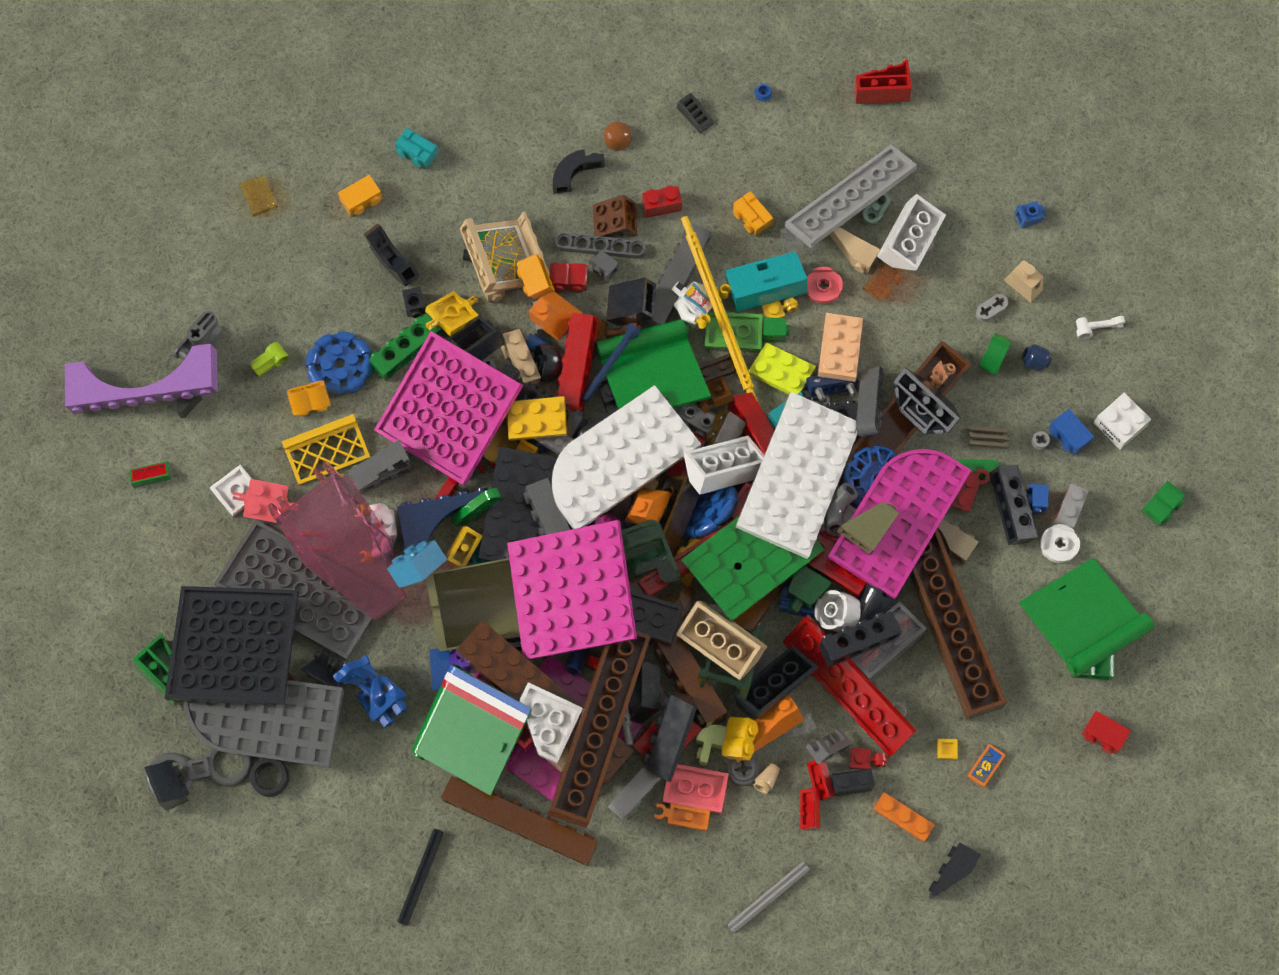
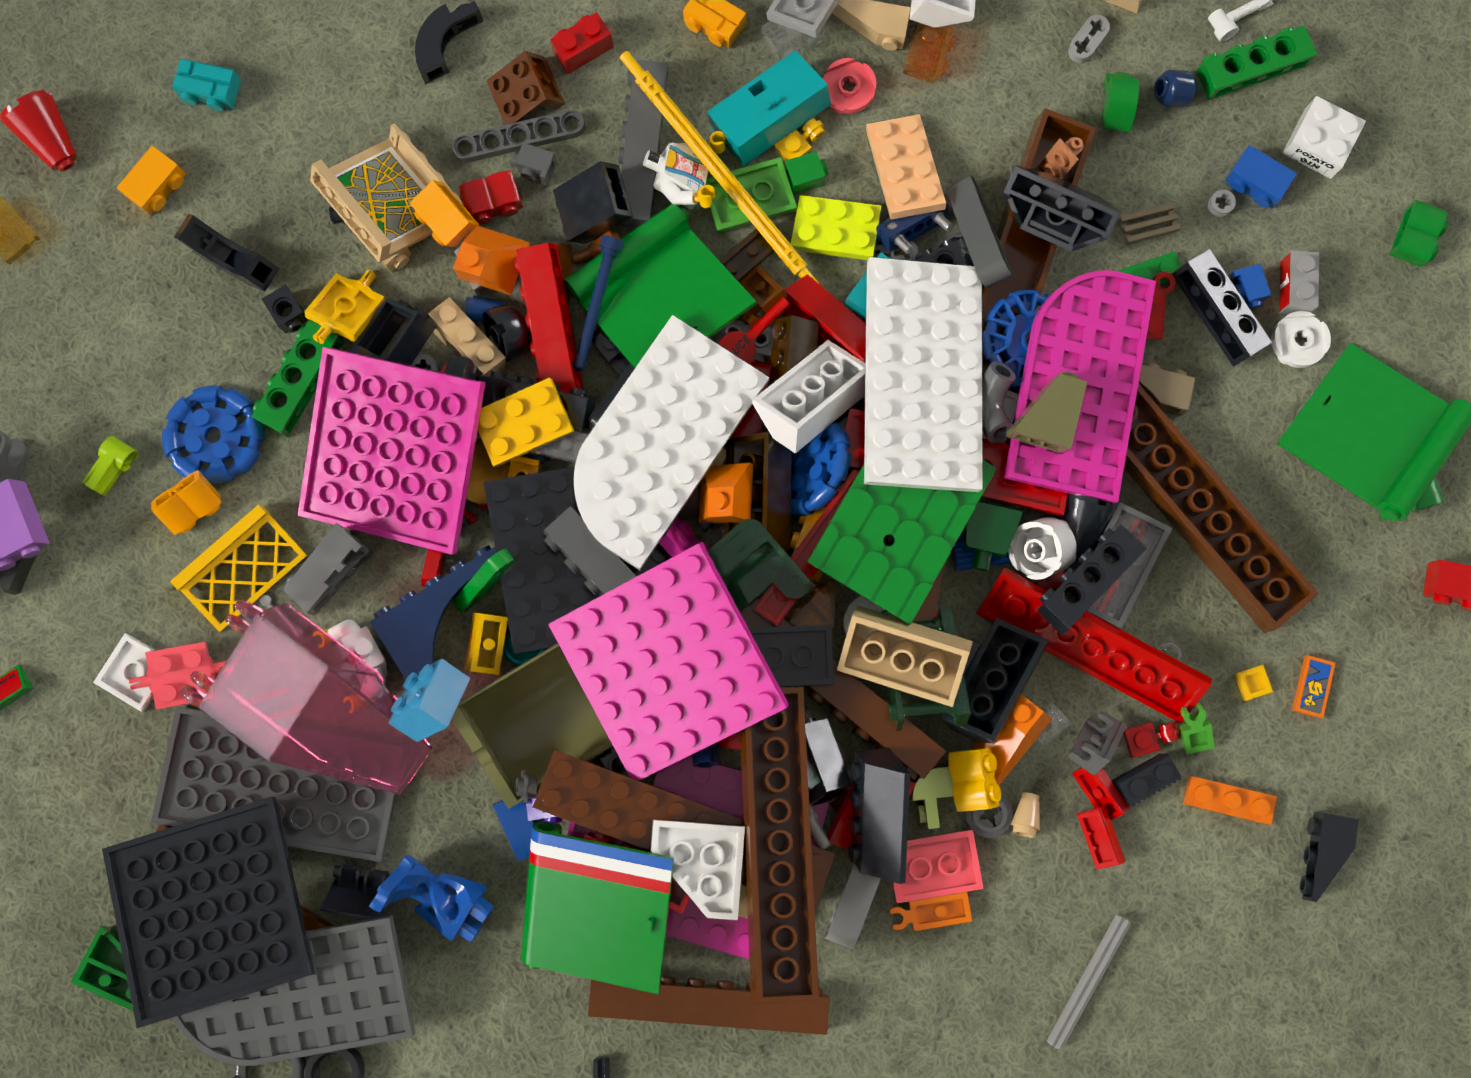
camera: 20 degrees left, 10 degrees up
(304, 142) = (41, 129): none -> red cone
(456, 639) = (526, 786): none -> dark grey plate
(694, 420) = (743, 344): none -> red piece
(896, 765) = (1197, 731): none -> bright green plate
(1067, 364) = (1292, 42): none -> green brick

